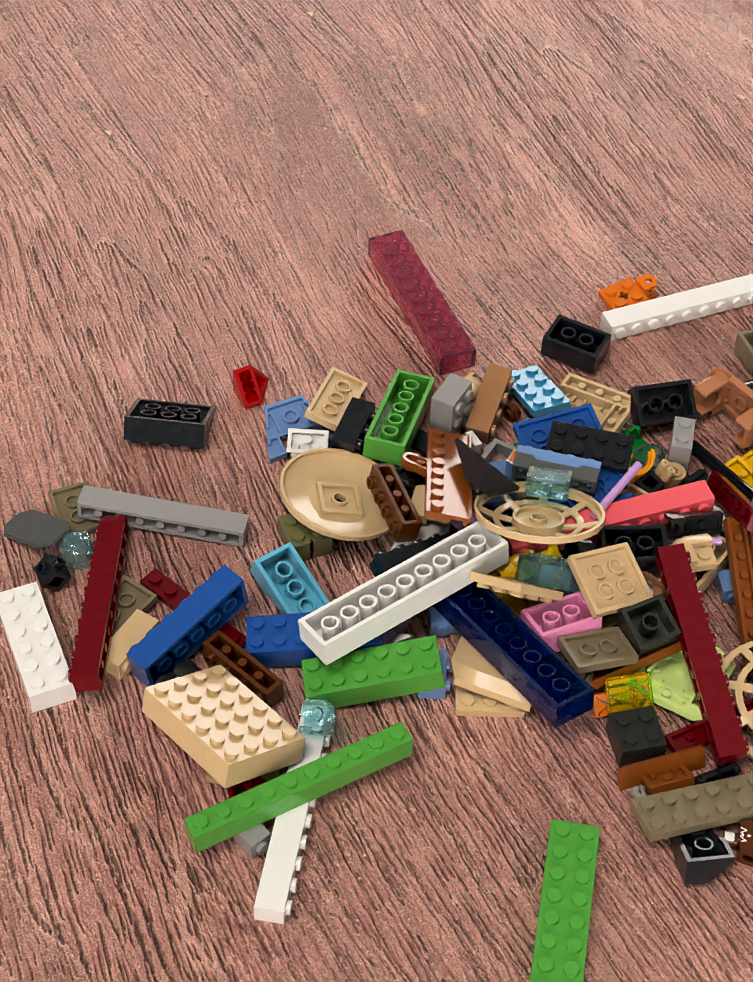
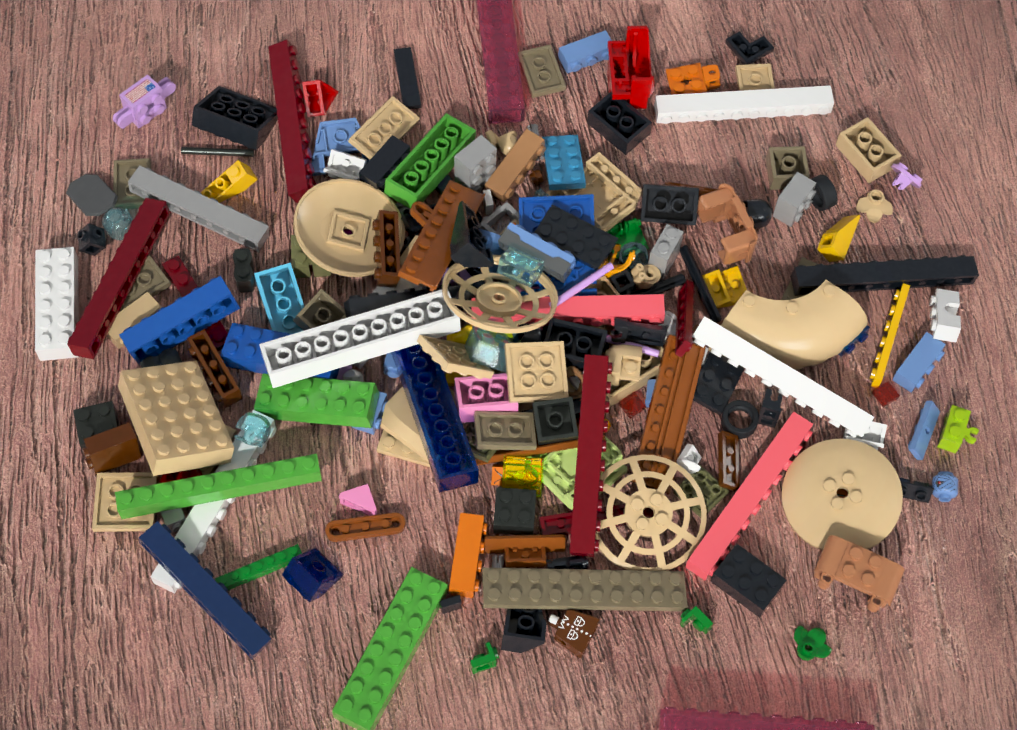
camera: 15 degrees right, 15 degrees up
(63, 425) = (143, 101): none -> lavender brick
(129, 763) = (95, 420): none -> pearl dark grey brick
(157, 779) = (111, 449): none -> reddish brown brick
(160, 460) = (217, 151): none -> pearl dark grey bar
(172, 845) = (105, 509): none -> tan plate
(189, 482) = (231, 182): none -> yellow slope
(233, 413) = (291, 119): none -> dark red brick
(234, 558) = (244, 270): none -> pearl dark grey brick
(325, 904) = (205, 590): none -> dark blue brick
(337, 349) = (407, 78): none -> black tile
(339, 581) = (319, 311): none -> dark tan brick
(373, 870) = (259, 568): none -> green piece
(437, 860) = (311, 574): none -> clear blue slope
(461, 767) = (359, 500): none -> bright pink slope
(476, 317) = (541, 71): none -> dark tan plate
(477, 794) = (365, 527): none -> dark orange plate
(512, 290) = (584, 52): none -> medium blue brick
(564, 290) = (630, 68): none -> red piece
(604, 795) = (466, 555): none -> orange brick
(608, 851) = (450, 604): none -> black tile
(669, 259) = (746, 51): none -> black brick
(673, 899) = (483, 662): none -> green bracket
(687, 278) = (754, 77): none -> tan plate
(712, 602) = (632, 405): none -> clear red tile

